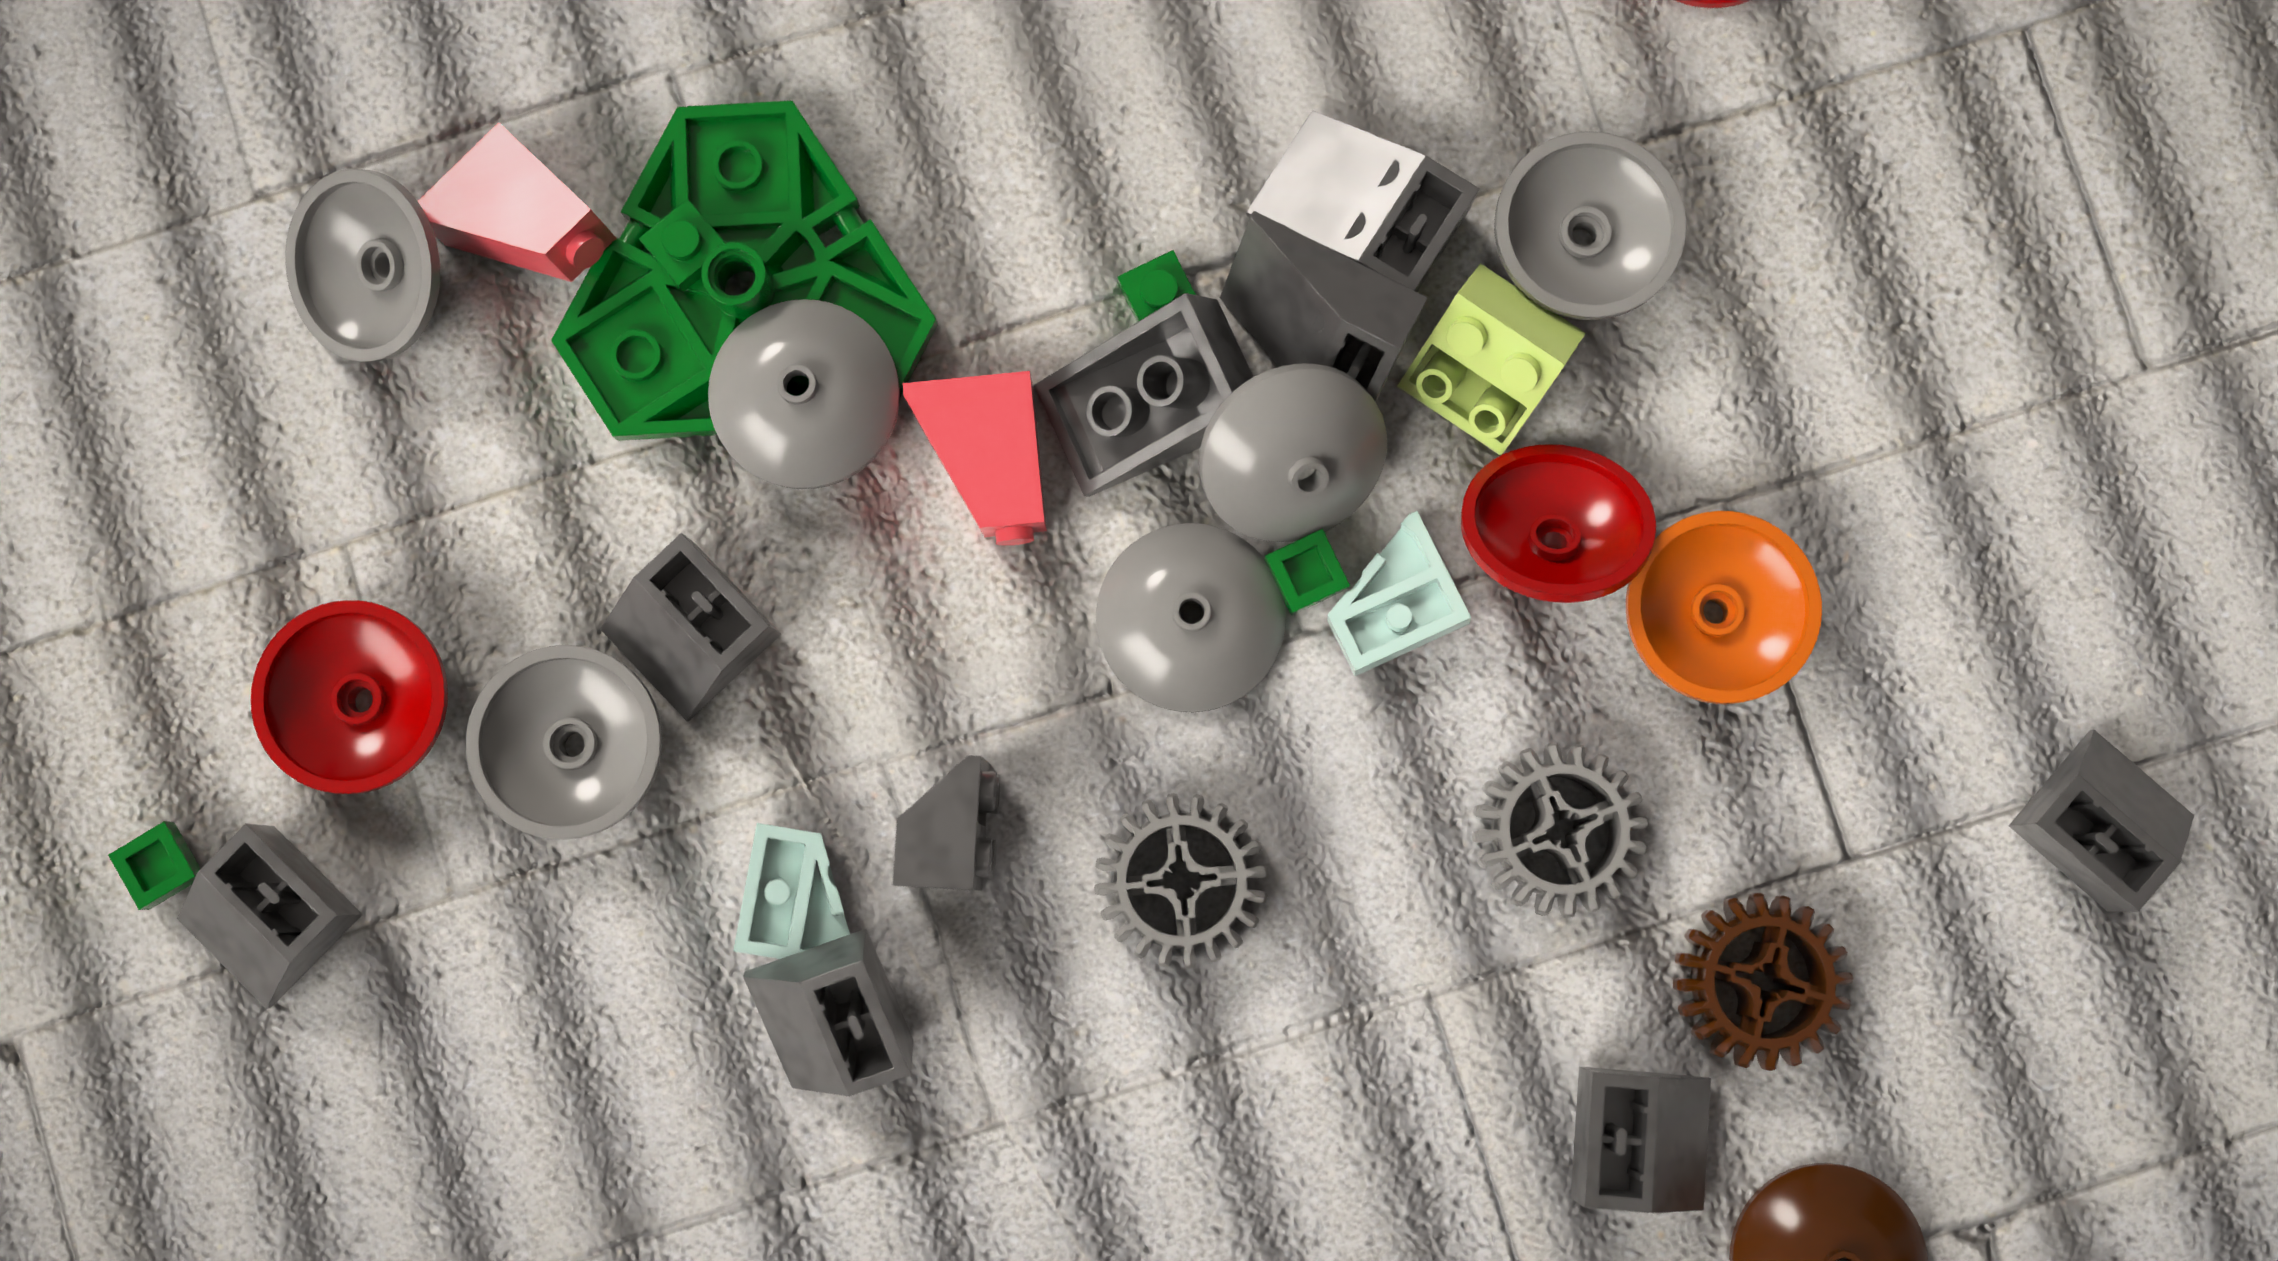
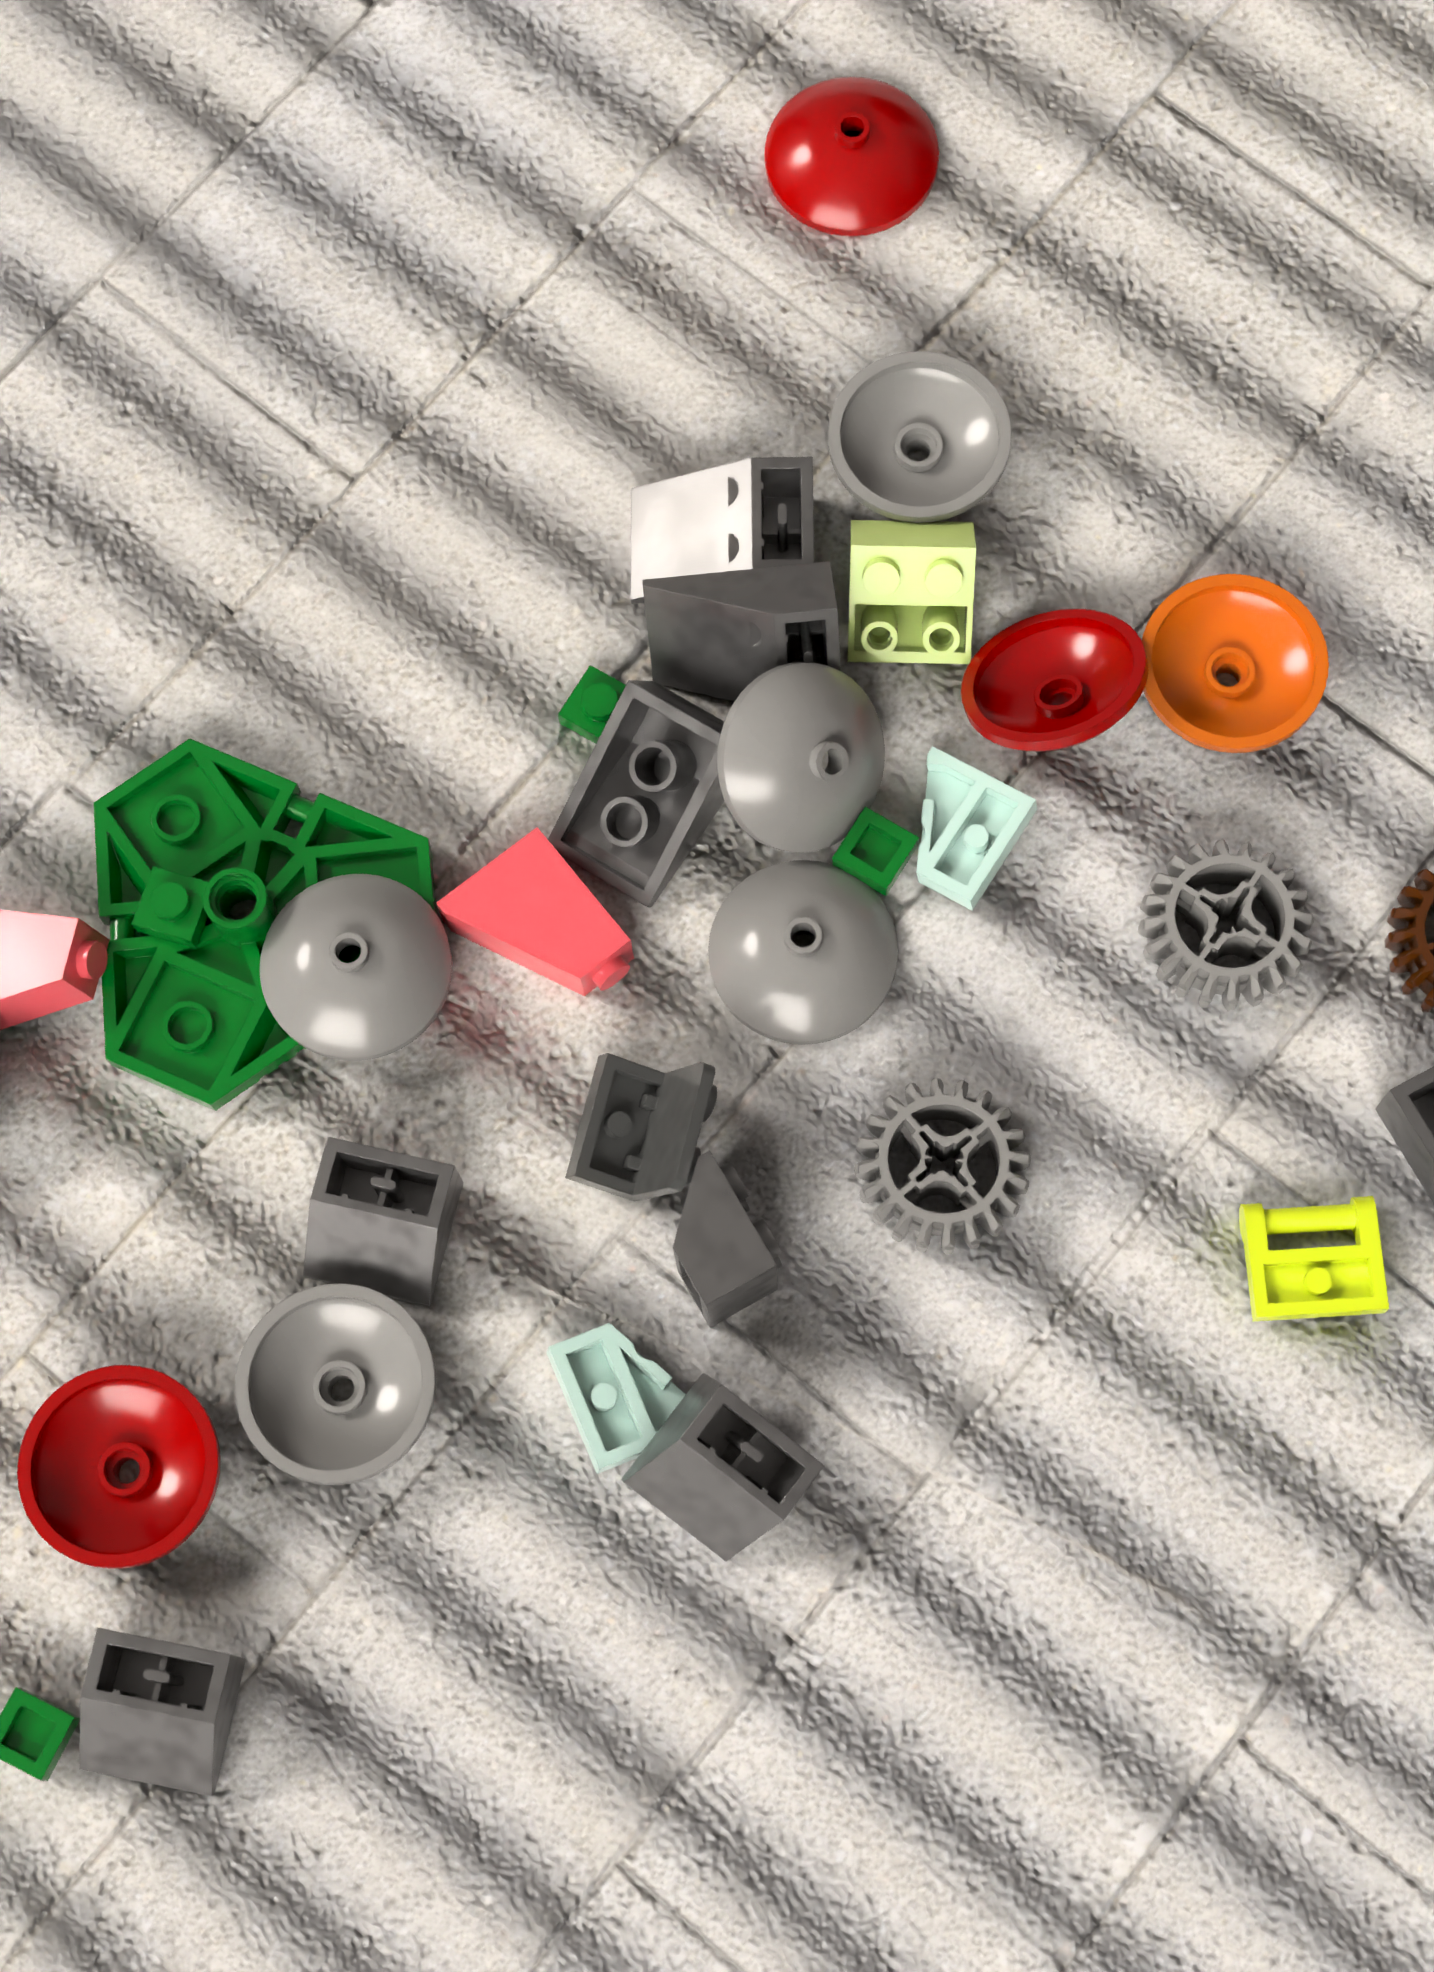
camera: 30 degrees left, 10 degrees down
(951, 688) = (641, 1128): none -> dark grey bracket
(1429, 1179) = (1314, 1279): none -> neon yellow plate

